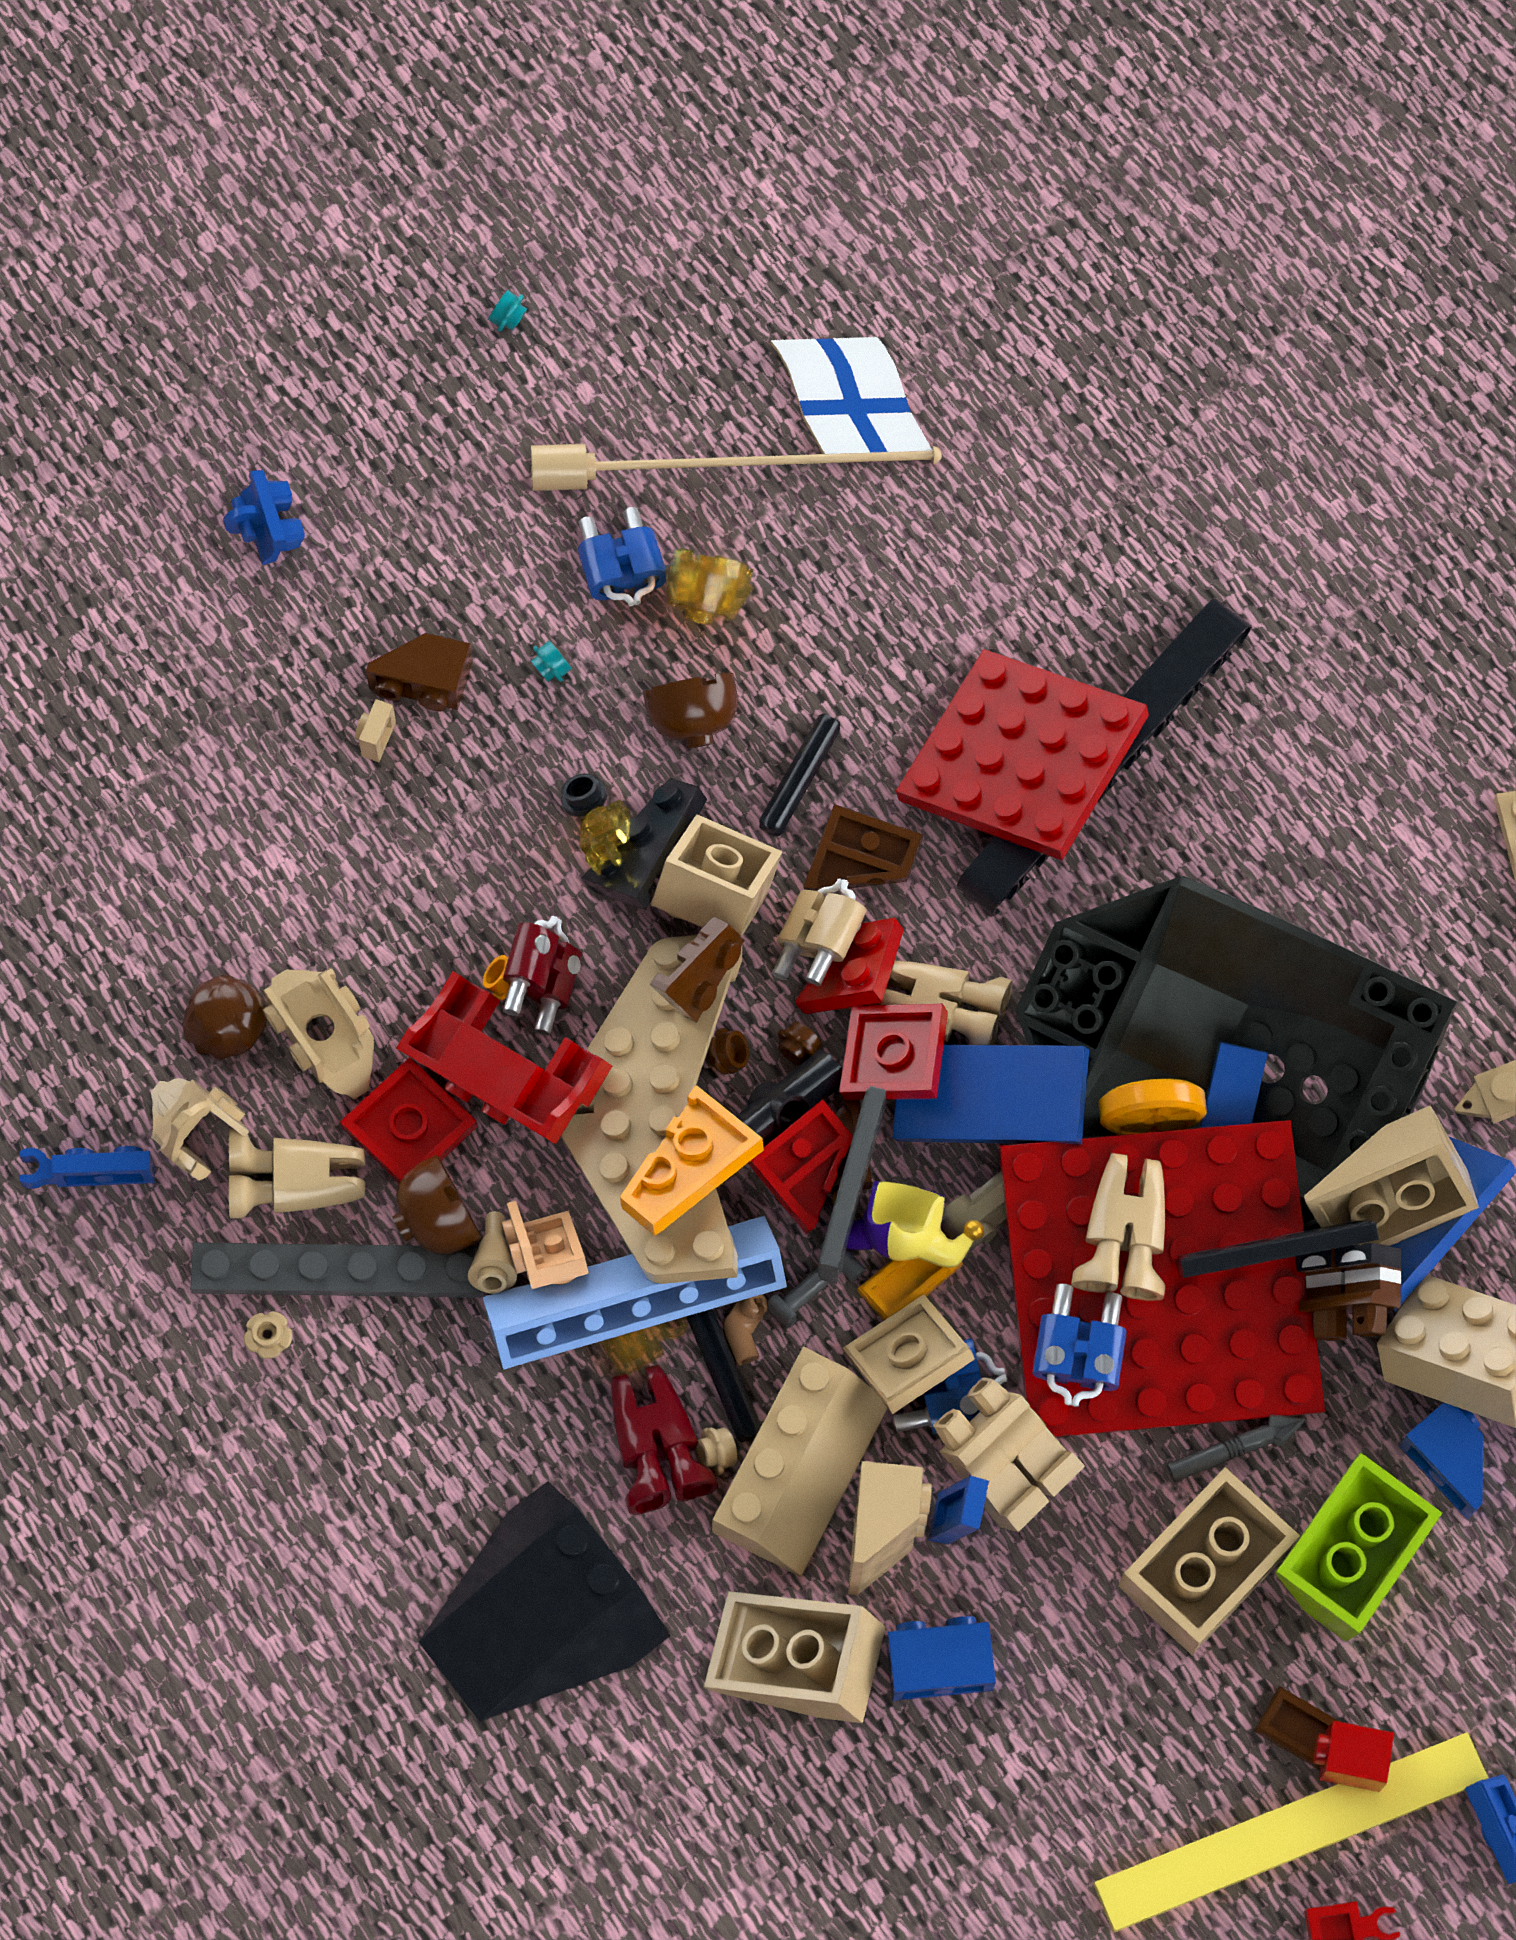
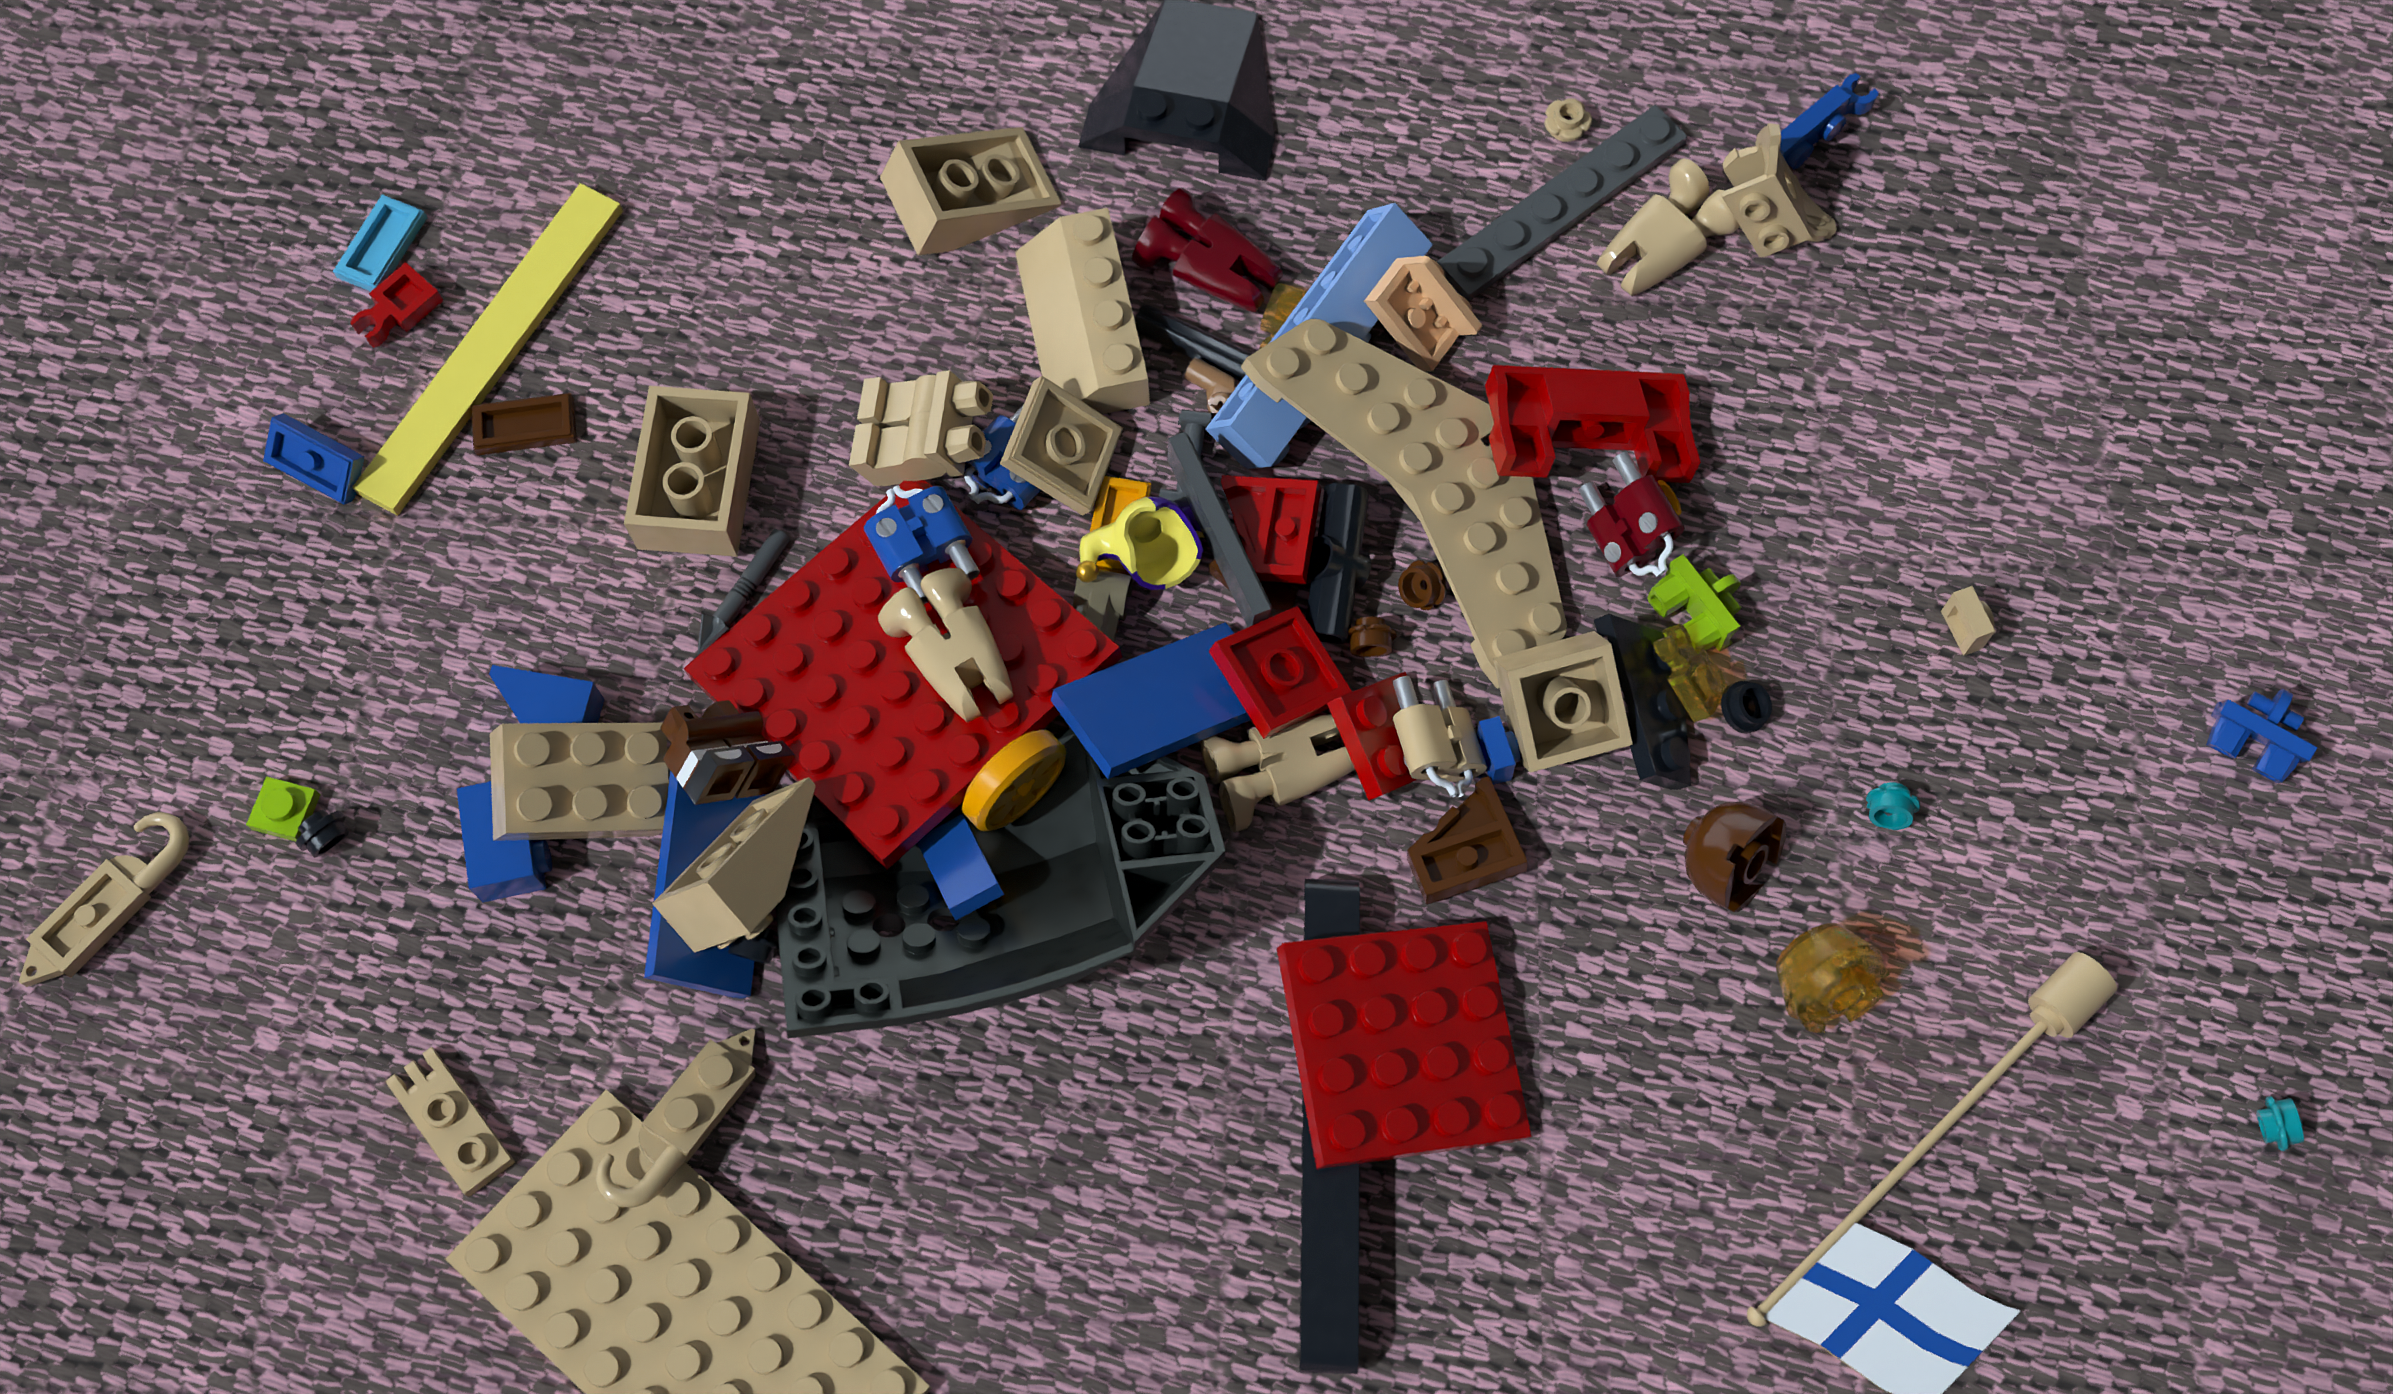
camera: 145 degrees right, 0 degrees up
(224, 1017) = (1839, 306): reddish brown hair -> none
(347, 1055) = (1789, 329): tan piece -> none
(408, 1121) = (1617, 329): red plate -> none
(423, 670) = (1982, 707): reddish brown slope -> none
(433, 1210) = (1529, 277): reddish brown cylinder -> none
(493, 1265) = (1459, 277): tan cone -> none
(555, 865) = (1704, 598): none -> lime hips
(621, 562) = (1926, 950): blue piece -> none
(692, 1160) = (1356, 419): light orange wing -> none
(703, 966) = (1497, 586): reddish brown wing -> none
(716, 1449) = (1156, 281): tan plate -> none
(782, 894) = (1499, 749): none -> blue plate
(799, 775) = (1585, 880): black axle -> none
(888, 1517) = (972, 288): tan slope -> none
(940, 1659) = (855, 259): blue brick -> none
(958, 1510) = (916, 347): blue tile -> none
(1276, 1248) = (806, 726): black tile -> none
(1354, 1755) = (469, 410): red brick -> none
(1356, 1547) = (569, 563): lime slope -> none

